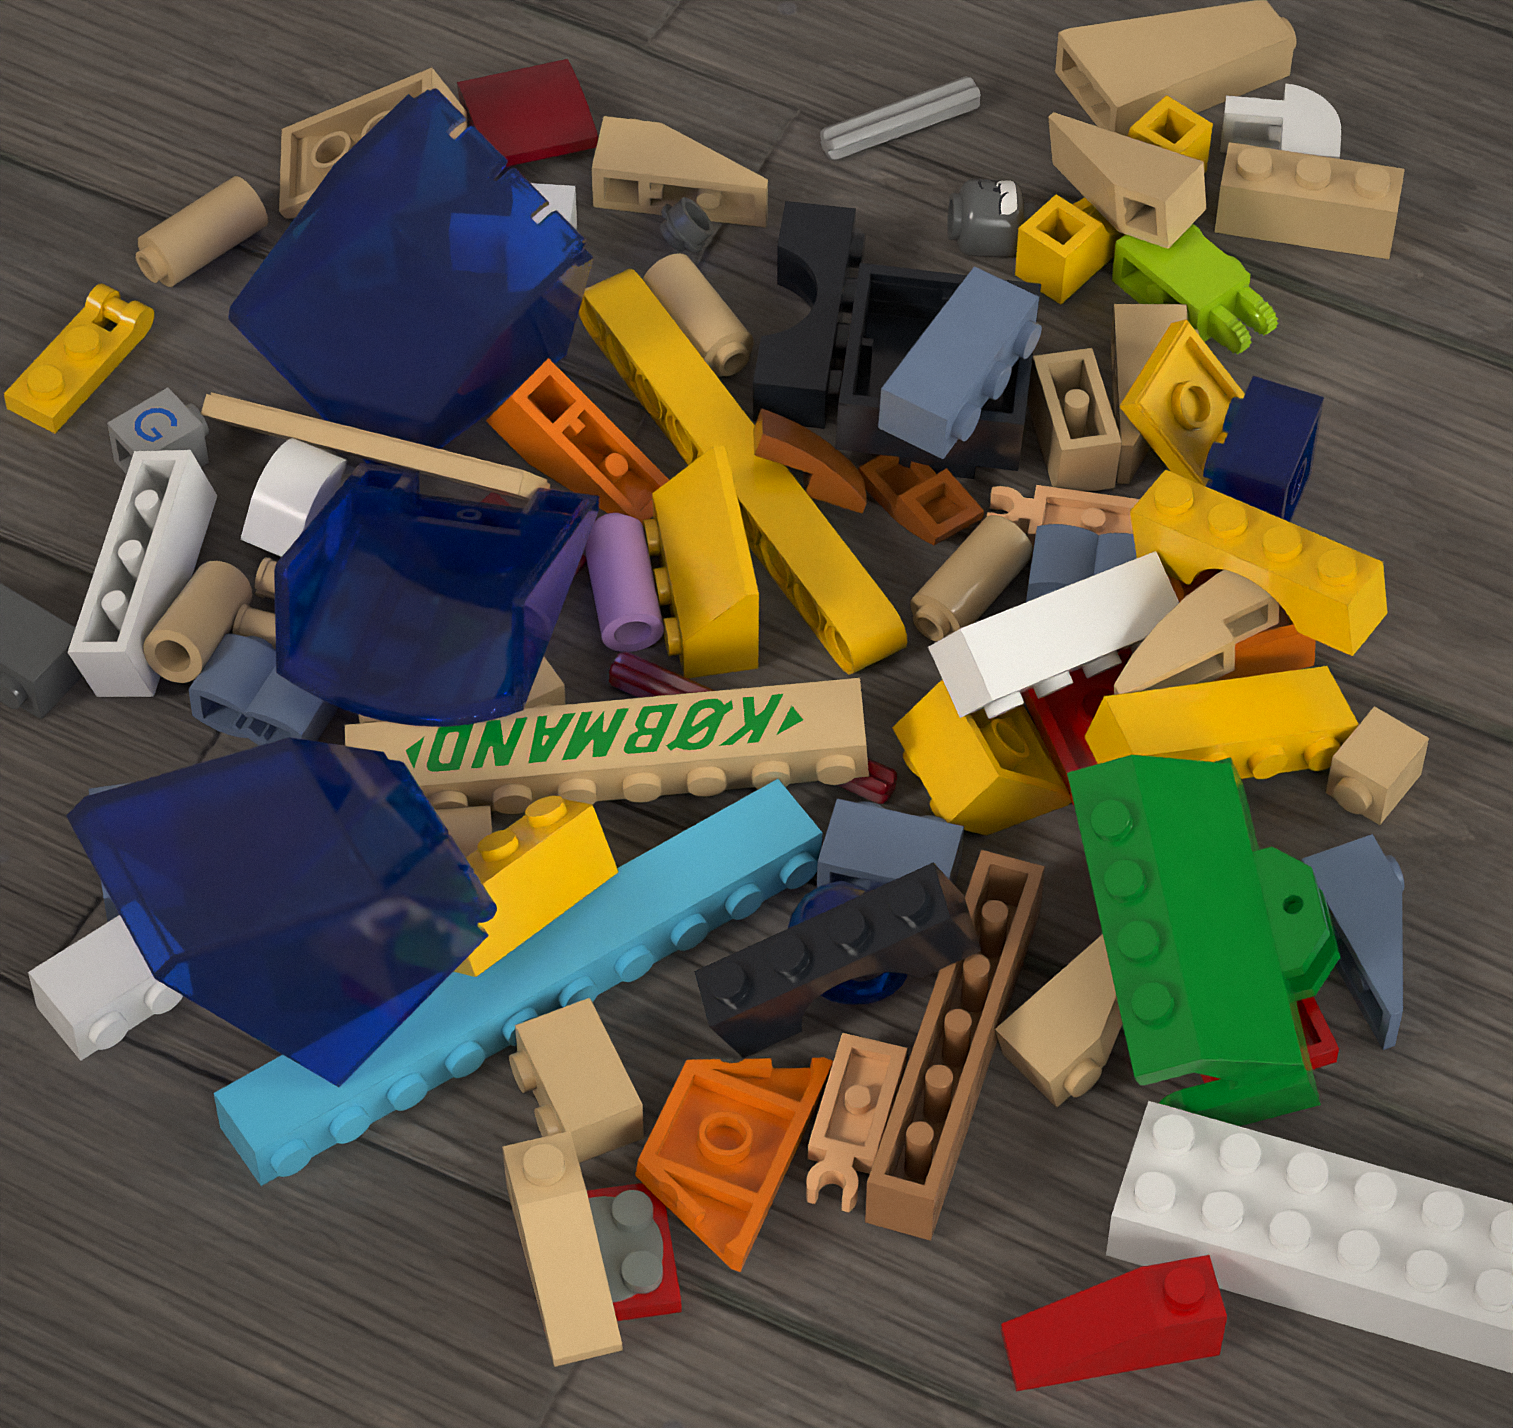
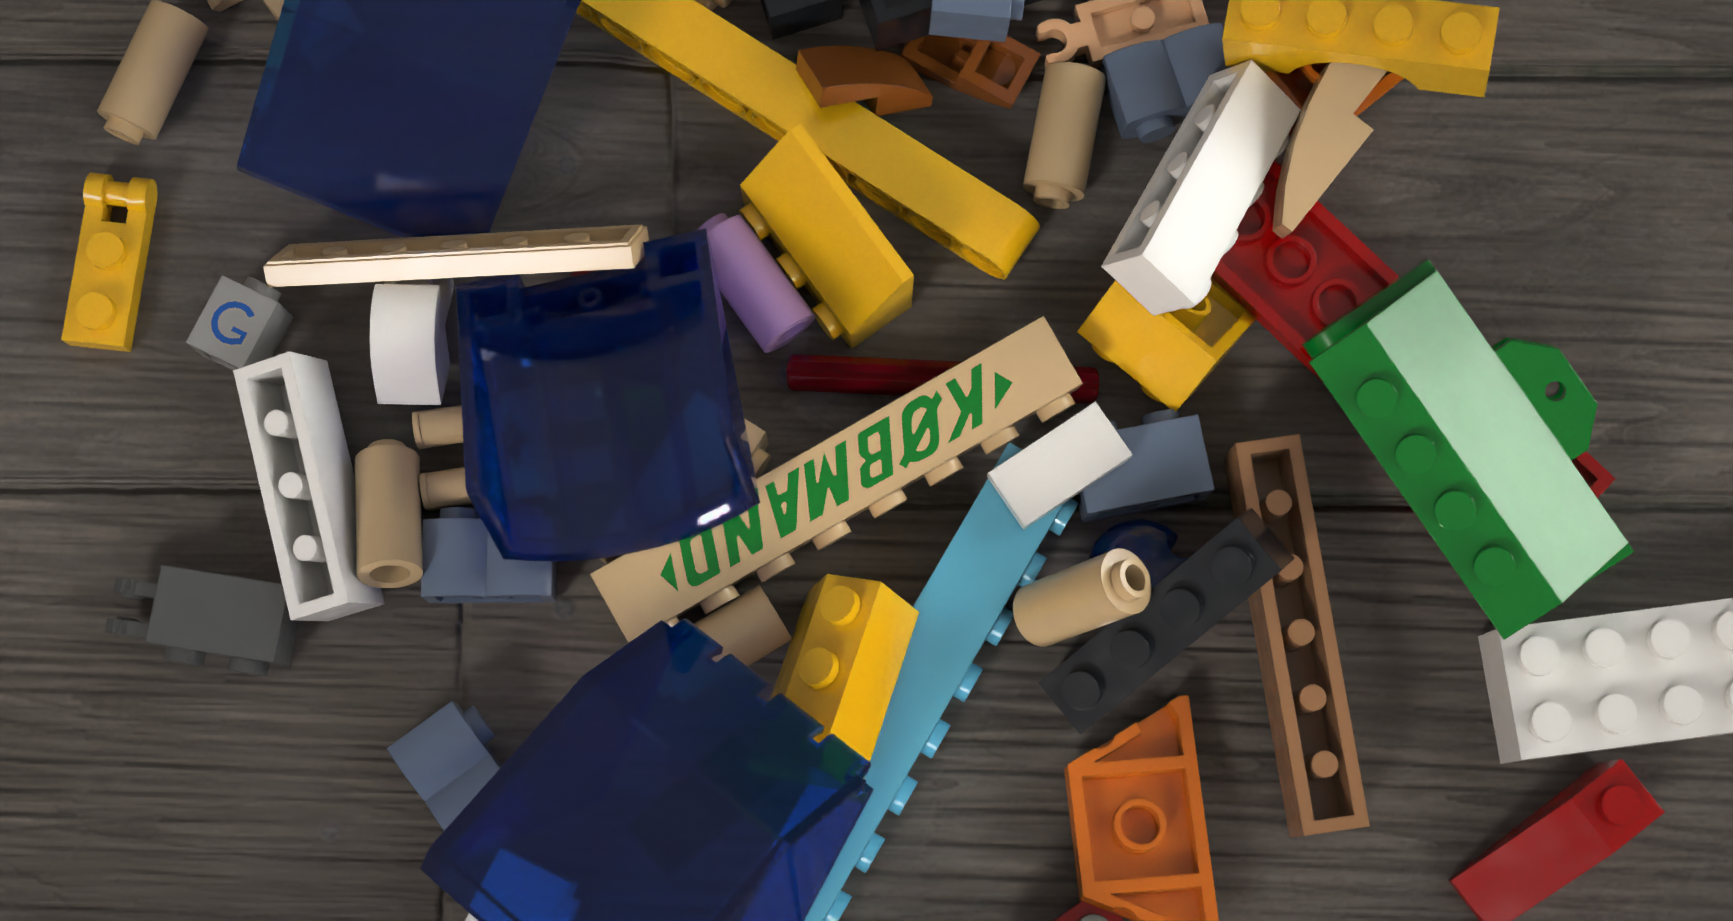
camera: 25 degrees left, 25 degrees up
(577, 443) = (638, 153): orange slope -> none
(577, 1080) = (980, 829): tan brick -> none
(768, 902) = (1082, 598): none -> tan brick
(811, 808) = (1059, 465): none -> white tile
(853, 1114) = (1232, 740): light nougat plate -> none
(1066, 1028) = (1382, 567): tan slope -> none
(1259, 721) = (1374, 206): yellow brick -> none
(1366, 916) = (1571, 314): sand blue slope -> none
(1376, 766) = (1512, 168): tan brick -> none

